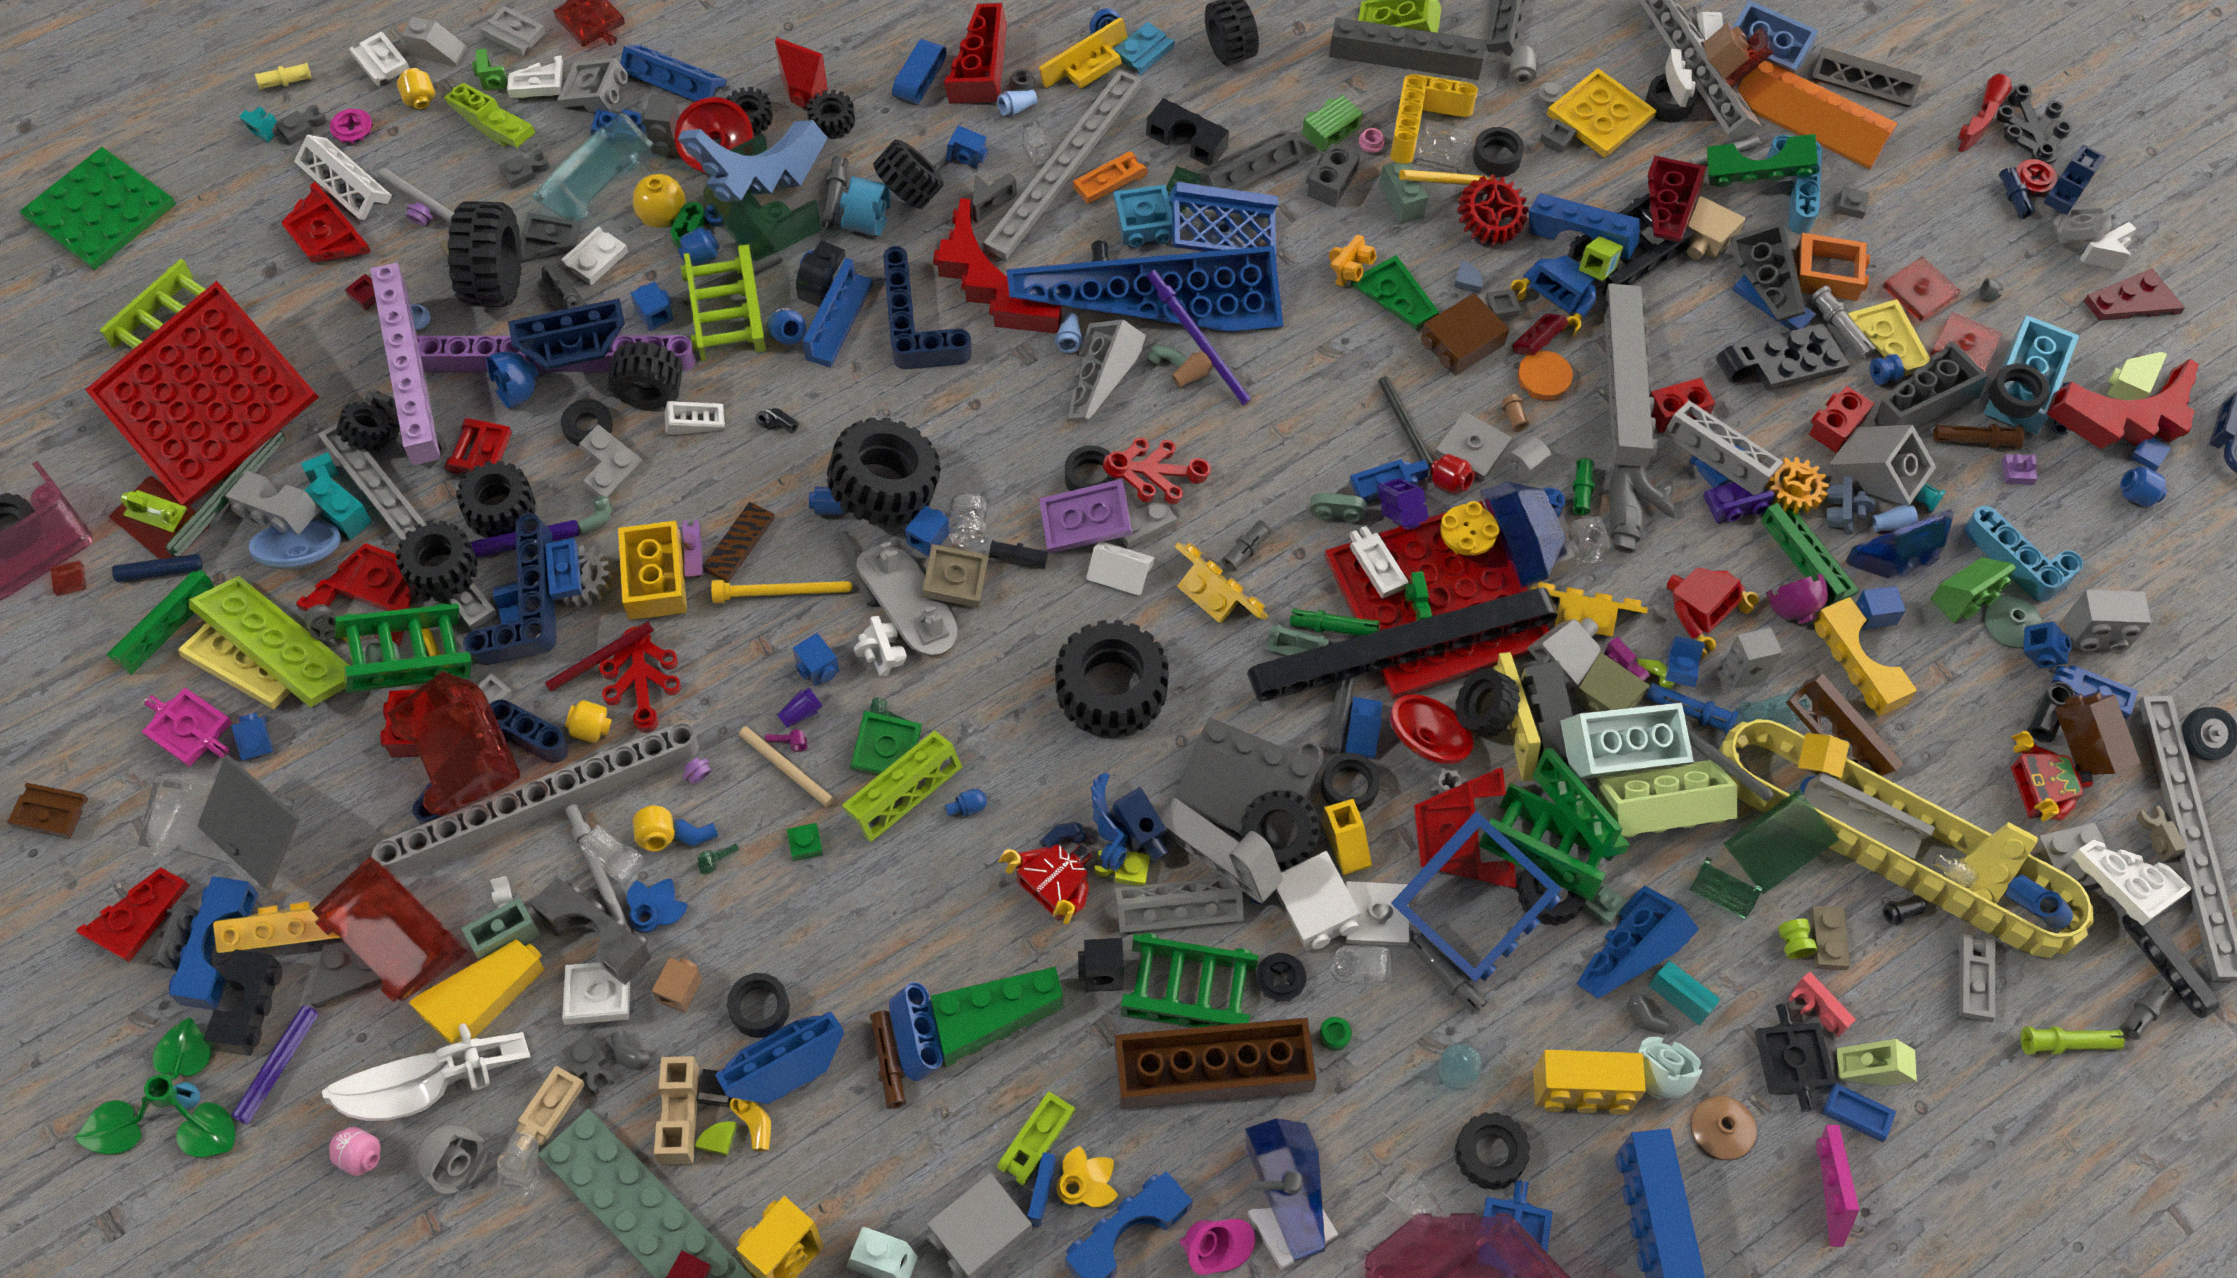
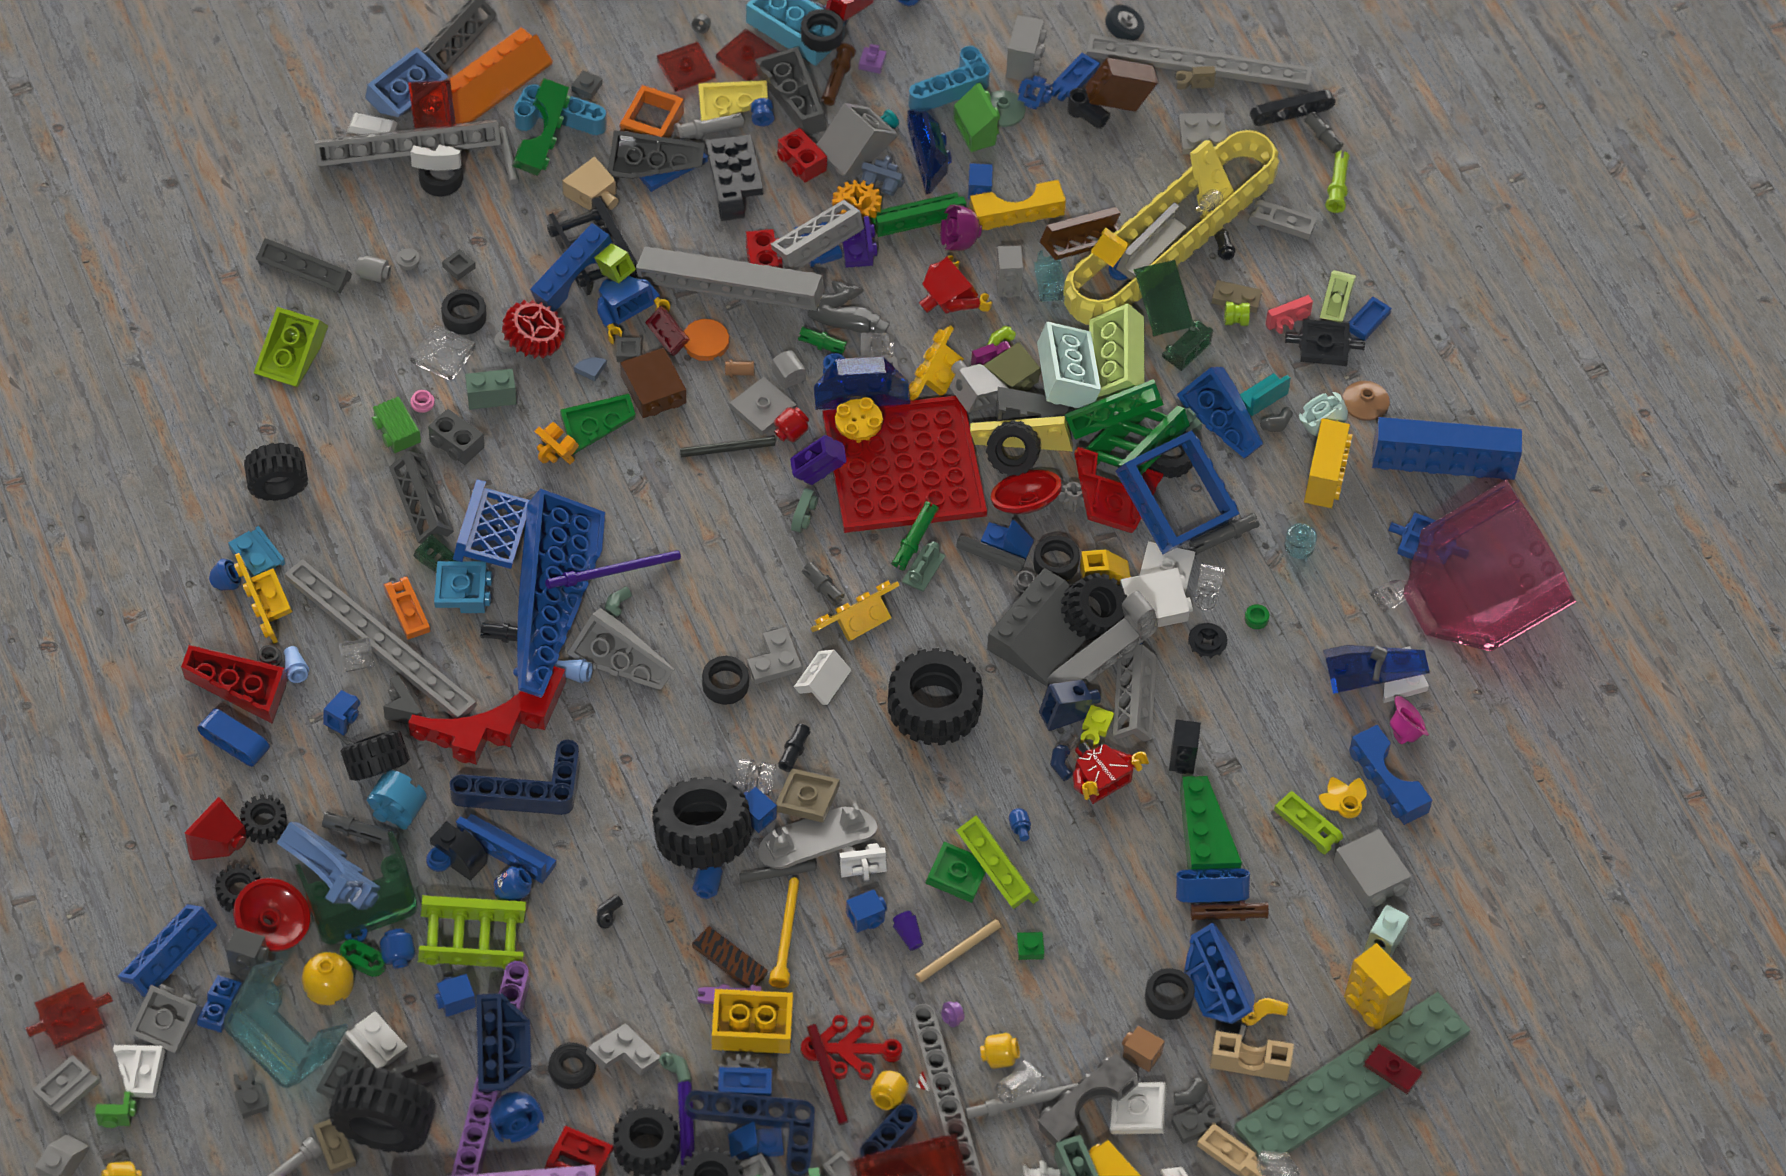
camera: 80 degrees left, 5 degrees down
(488, 117) = (178, 1117): lime slope -> none
(645, 375) = (549, 998): black tyre -> none
(654, 901) = (1065, 1059): blue plate -> none
(683, 409) = (589, 993): white slope -> none
(691, 835) = (1010, 1022): blue arm -> none
(707, 858) = (1034, 1017): clear green hand -> none
(717, 1138) = (1271, 1032): lime tile -> none
(796, 738) = (936, 938): magenta hand -> none
(880, 707) = (921, 874): clear green hand -> none
(1042, 1189) = (1349, 823): blue tile -> none
(1085, 516) = (773, 688): medium lavender plate -> none
(1108, 828) = (1065, 725): blue plant -> none
(1120, 465) = (734, 649): red plant -> none
(1170, 1009) = (1229, 696): green fence -> none
(1173, 121) = (387, 522): black arch -> none
(1192, 369) = (636, 581): medium nougat cone -> none
(1214, 1063) = (1273, 692): reddish brown brick -> none
(1366, 482) = (784, 482): blue hinge -> none
(1377, 562) = (869, 491): white hinge -> none
(1401, 644) = (949, 493): black beam -> none
(1407, 48) = (328, 349): dark grey brick -> none
(1417, 593) = (908, 470): green plate -> none
(1429, 95) = (392, 354): yellow beam -> none
(1437, 177) = (491, 354): yellow bar -> none
(1510, 1133) = (1362, 555): black tyre -> none
(1602, 112) = (442, 227): yellow plate -> none
(1657, 693) = (1041, 316): blue pin -> none
(1673, 195) = (560, 196): dark red wedge -> none
(1683, 660) = (1000, 317): blue slope -> none
(1727, 49) = (420, 115): medium nougat brick -> none
(1728, 765) = (1108, 305): dark grey piece -> none
(1837, 1184) = (1422, 342): dark pink wing -> none
(1895, 518) = (901, 149): light blue cone -> none
(2039, 901) = (1242, 161): blue piece -> none
(2047, 780) = (1145, 129): torso -> none
(2133, 883) = (1234, 104): white plate -> none

